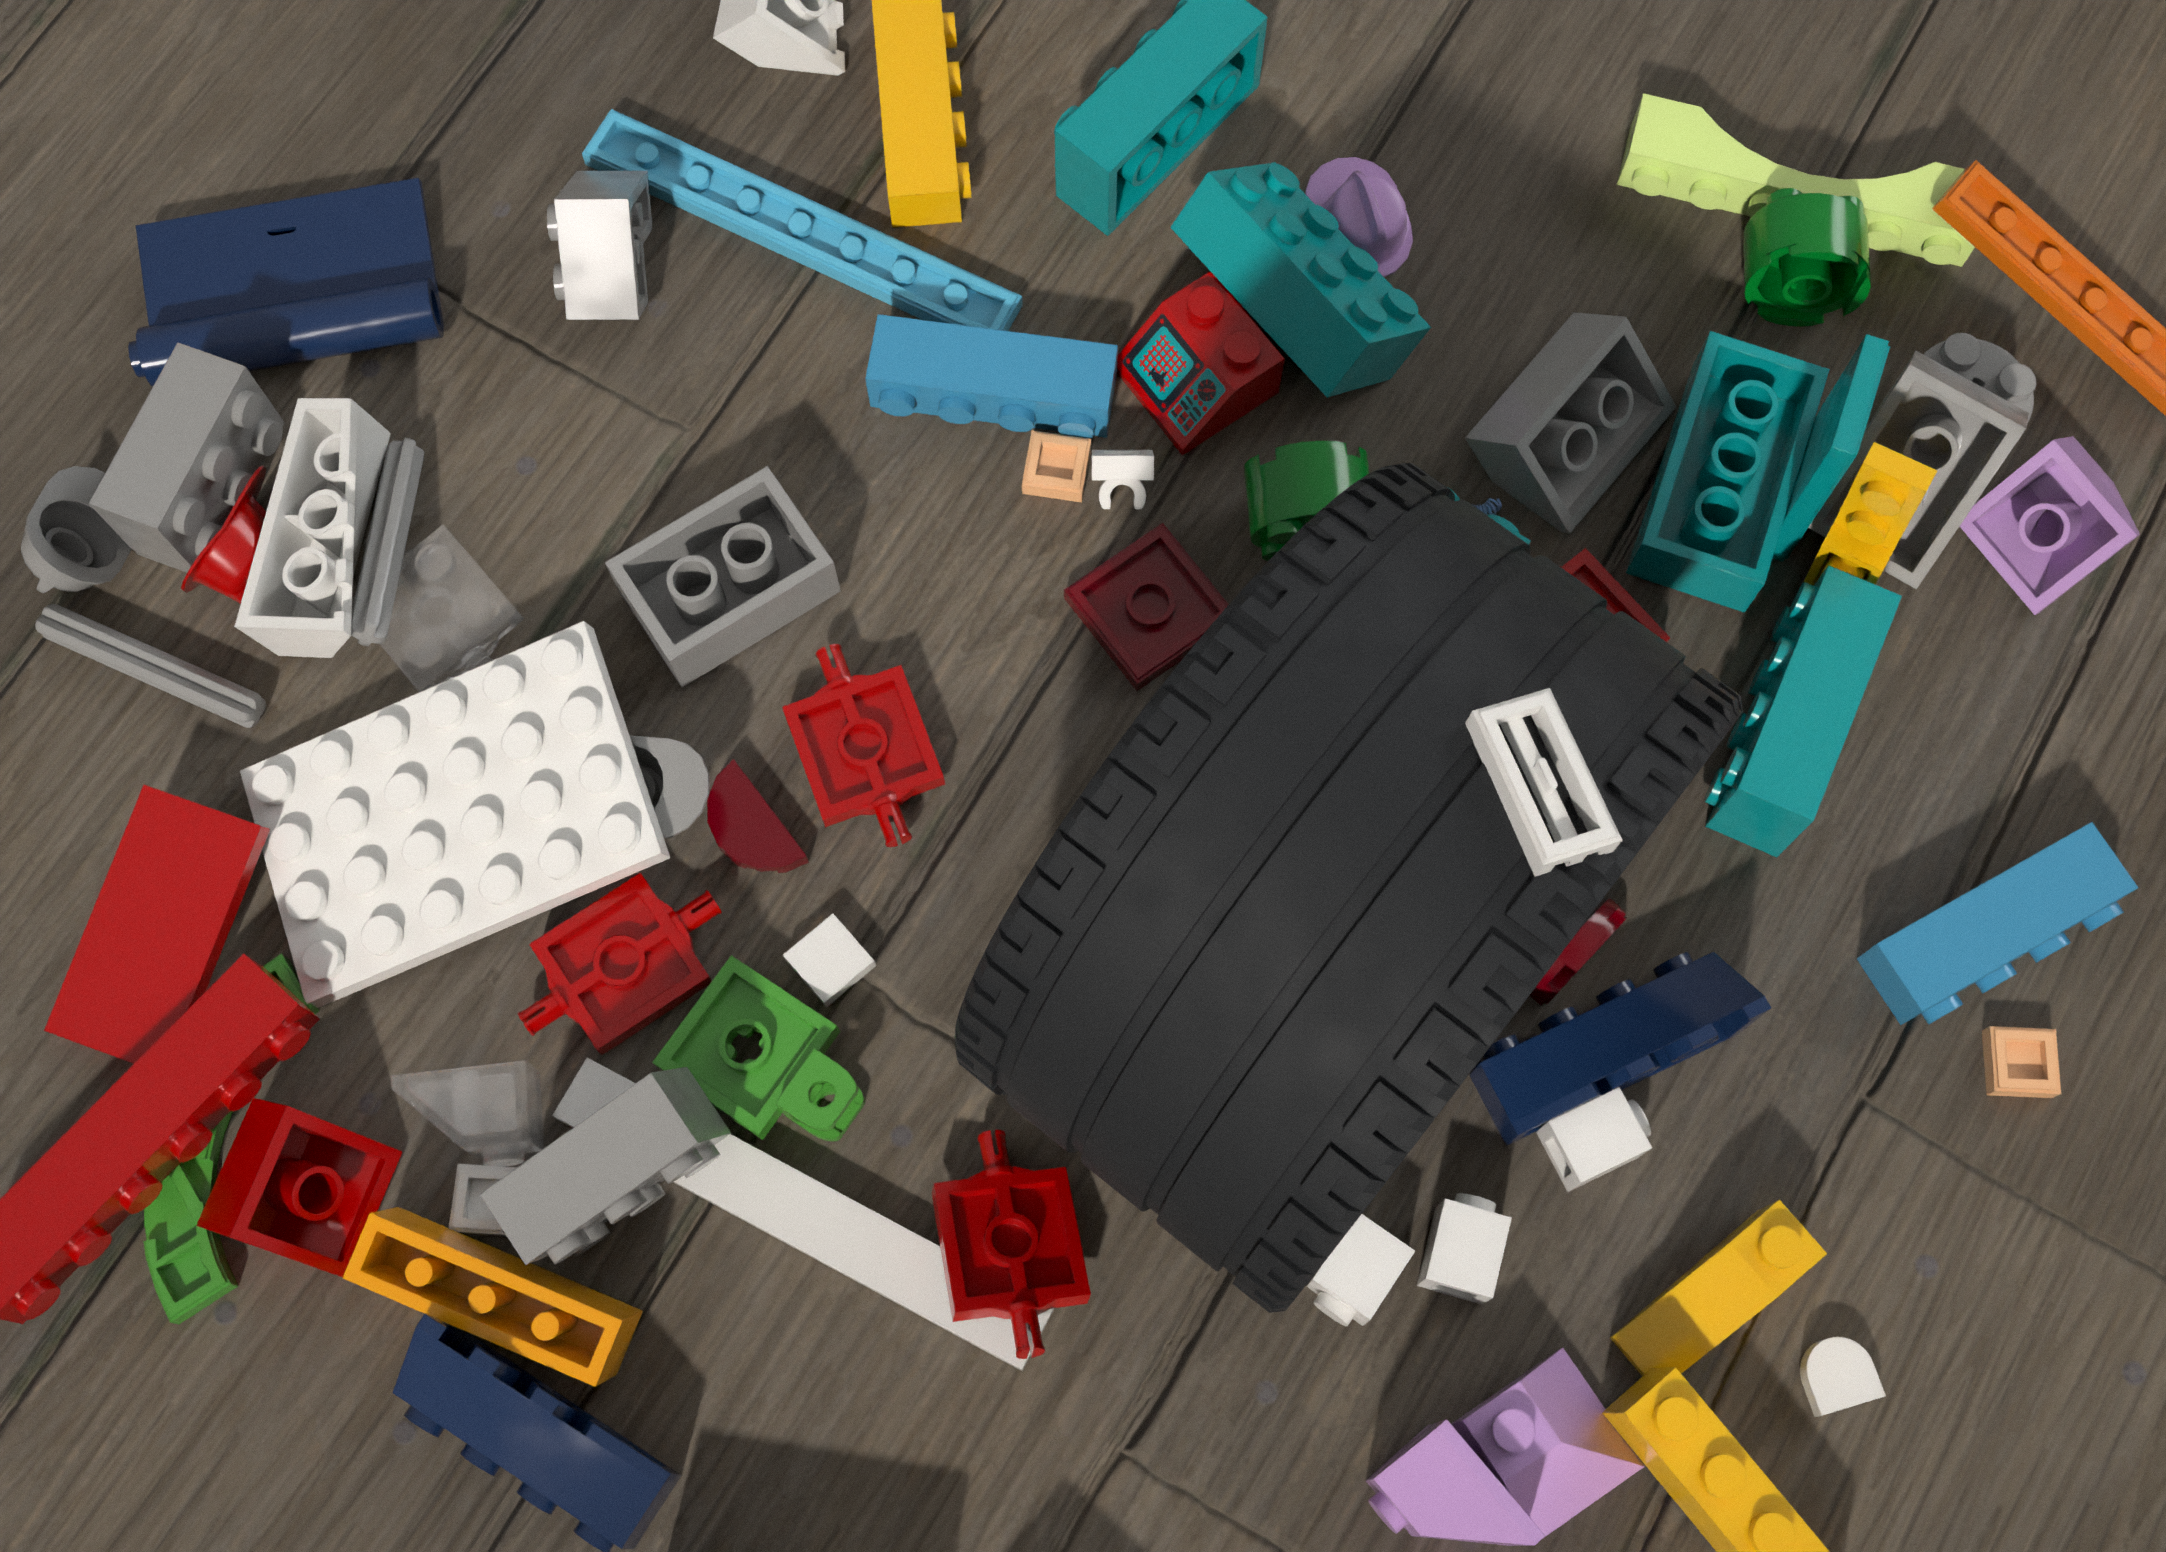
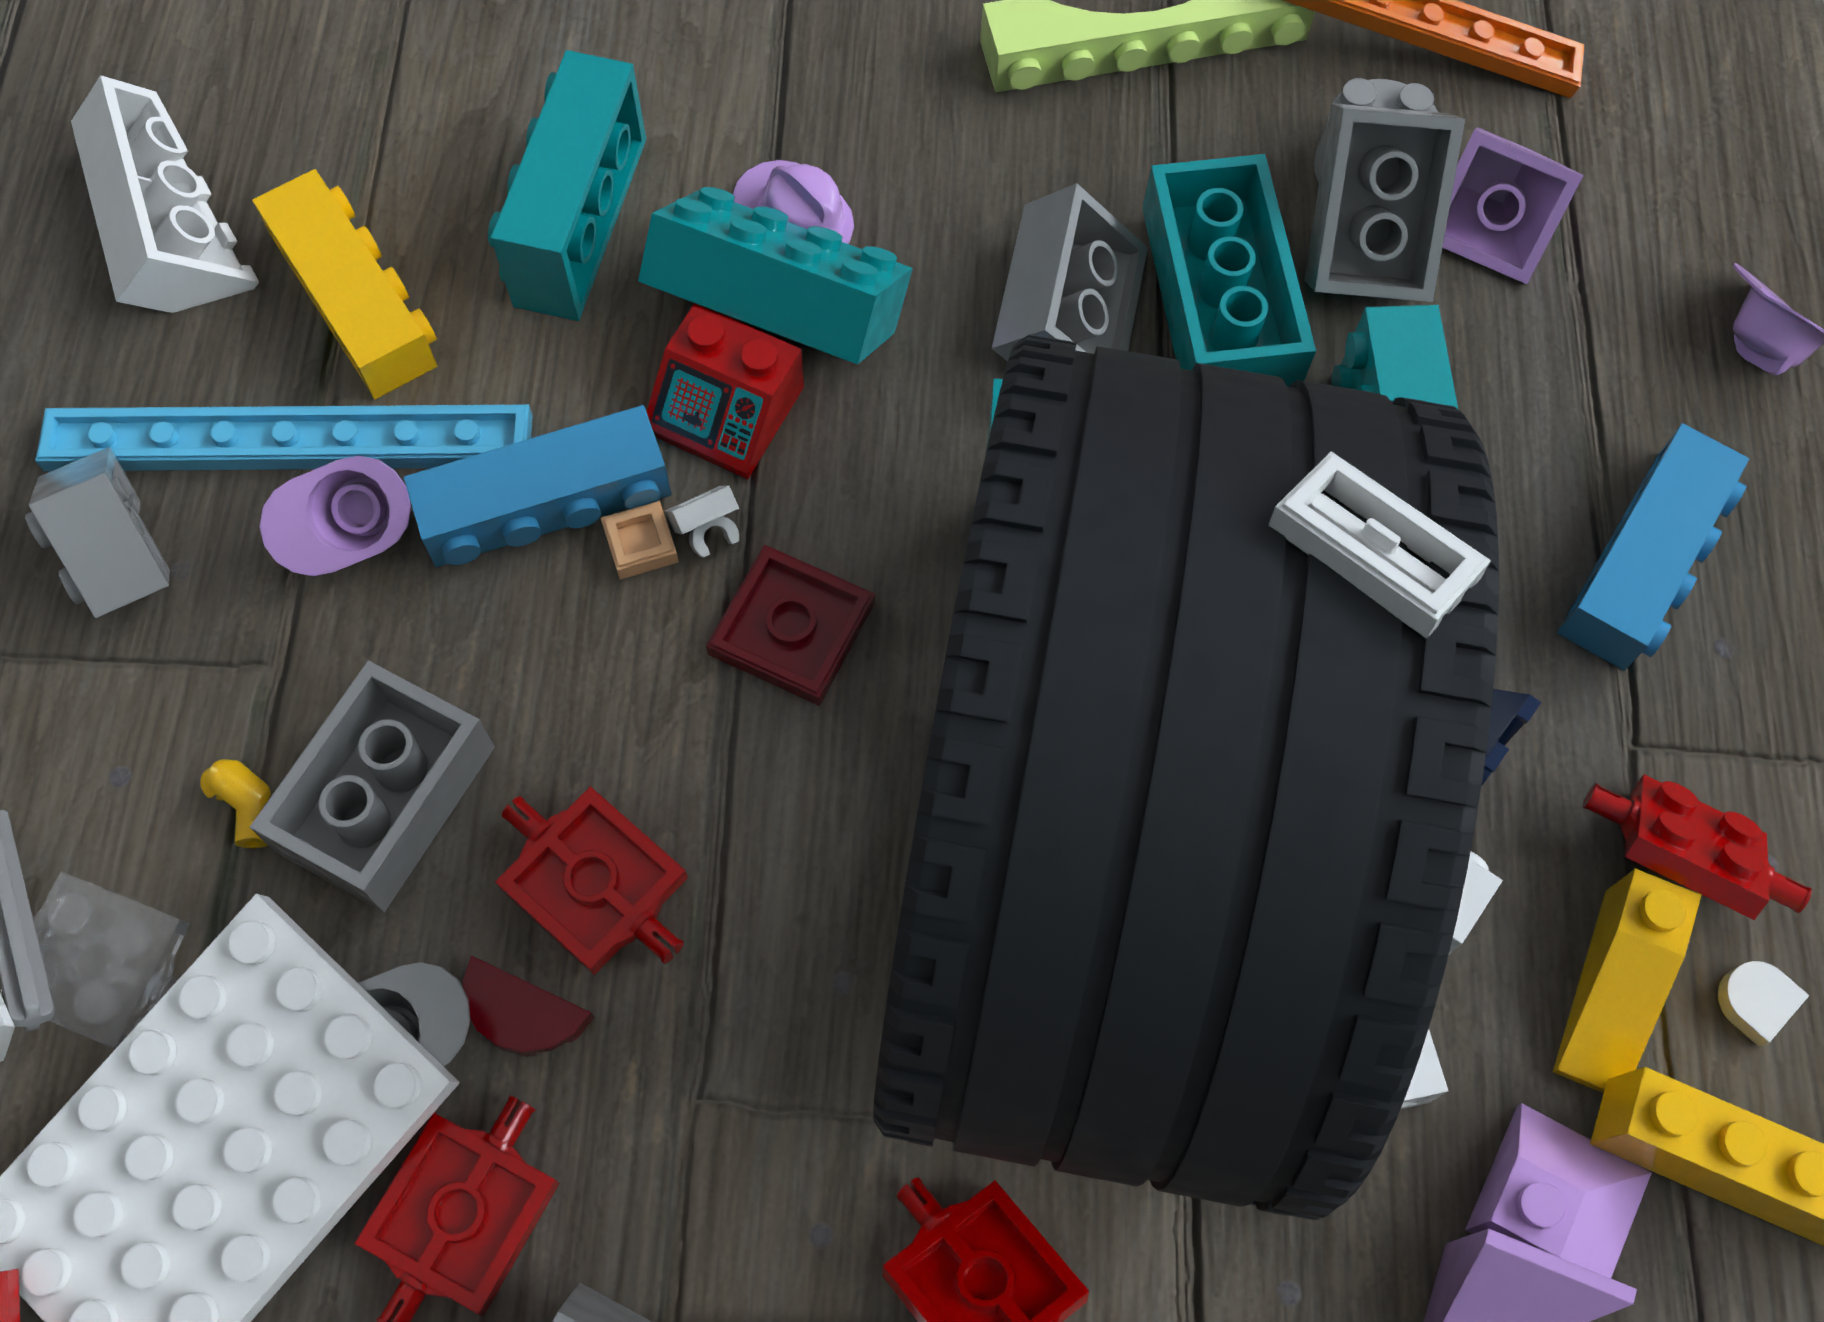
camera: 30 degrees left, 5 degrees down
(616, 527) = (243, 791): none -> yellow arm
(788, 1074) = (681, 1236): bright green plate -> none
(804, 322) = (335, 516): none -> lavender piece
(829, 960) = (664, 1101): white tile -> none
(1296, 487) = (888, 461): green brick -> none
(1806, 257) = (1189, 77): green brick -> none
(1833, 440) = (1316, 193): teal tile -> none
(1858, 1212) = (1698, 846): none -> red plate
(1873, 515) = (1380, 248): yellow slope -> none
(2021, 1062) = (1737, 651): light nougat tile -> none

